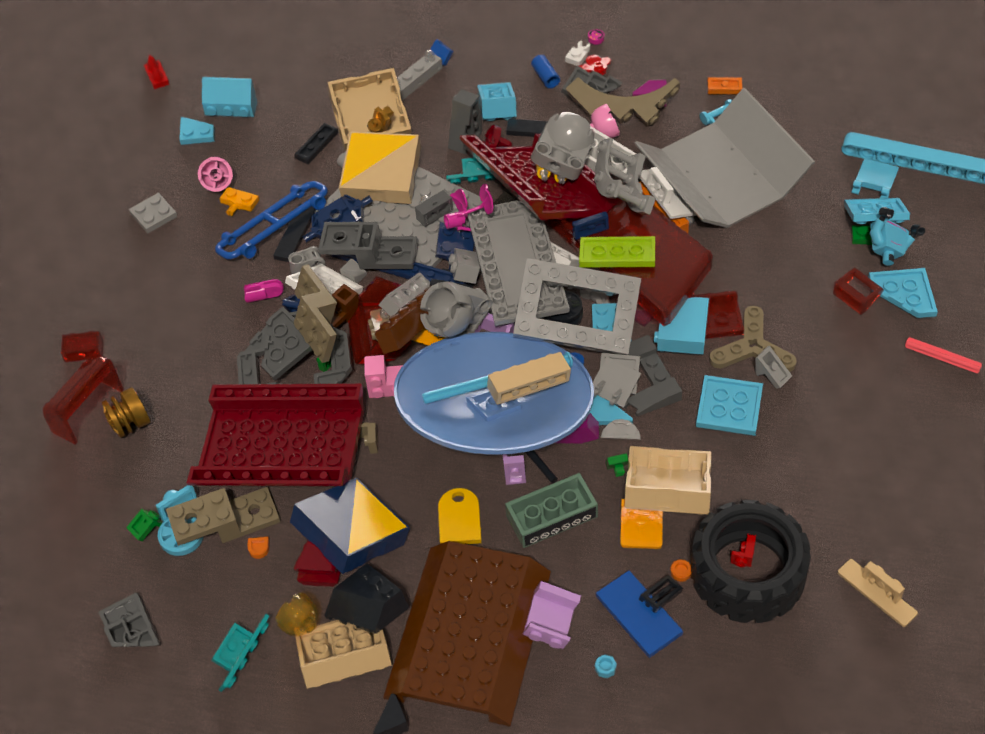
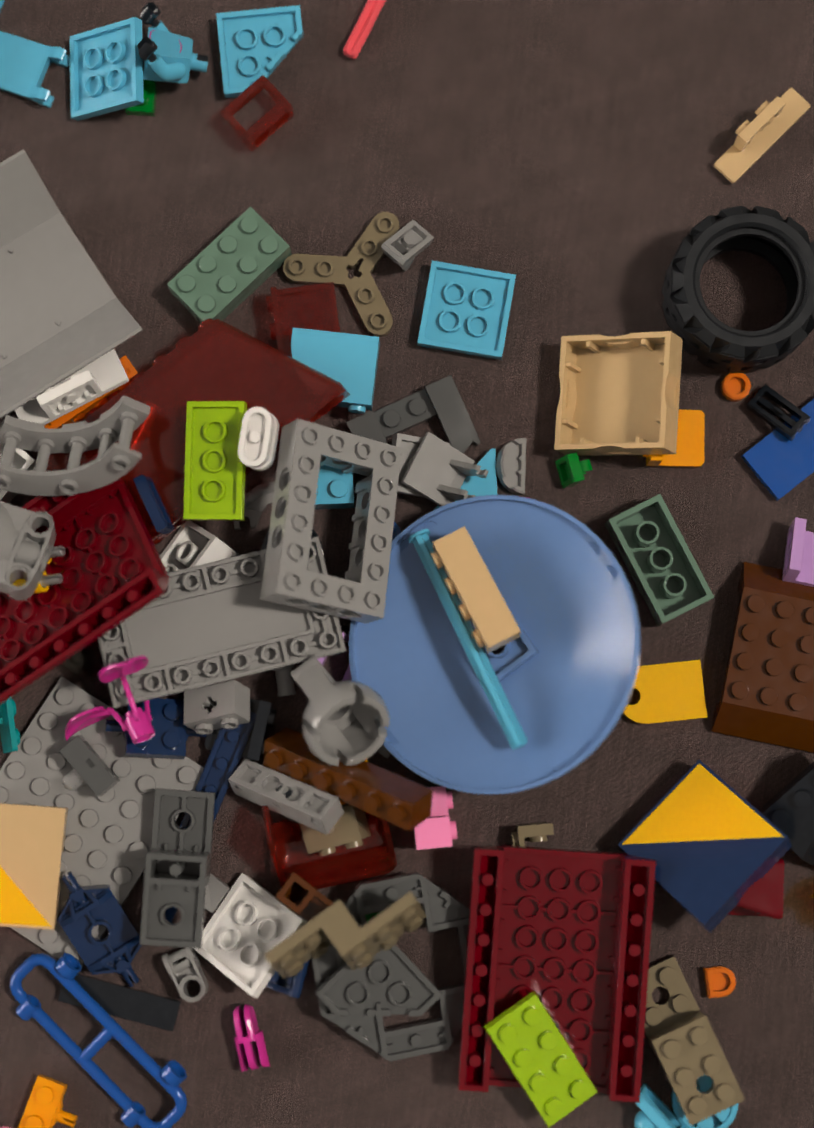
camera: 100 degrees left, 30 degrees up
(223, 429) = (540, 1059): none -> lime plate
(630, 263) = (258, 439): none -> white brick
(744, 557) = (719, 296): red bracket -> none
(749, 276) = (230, 268): none -> sand green brick

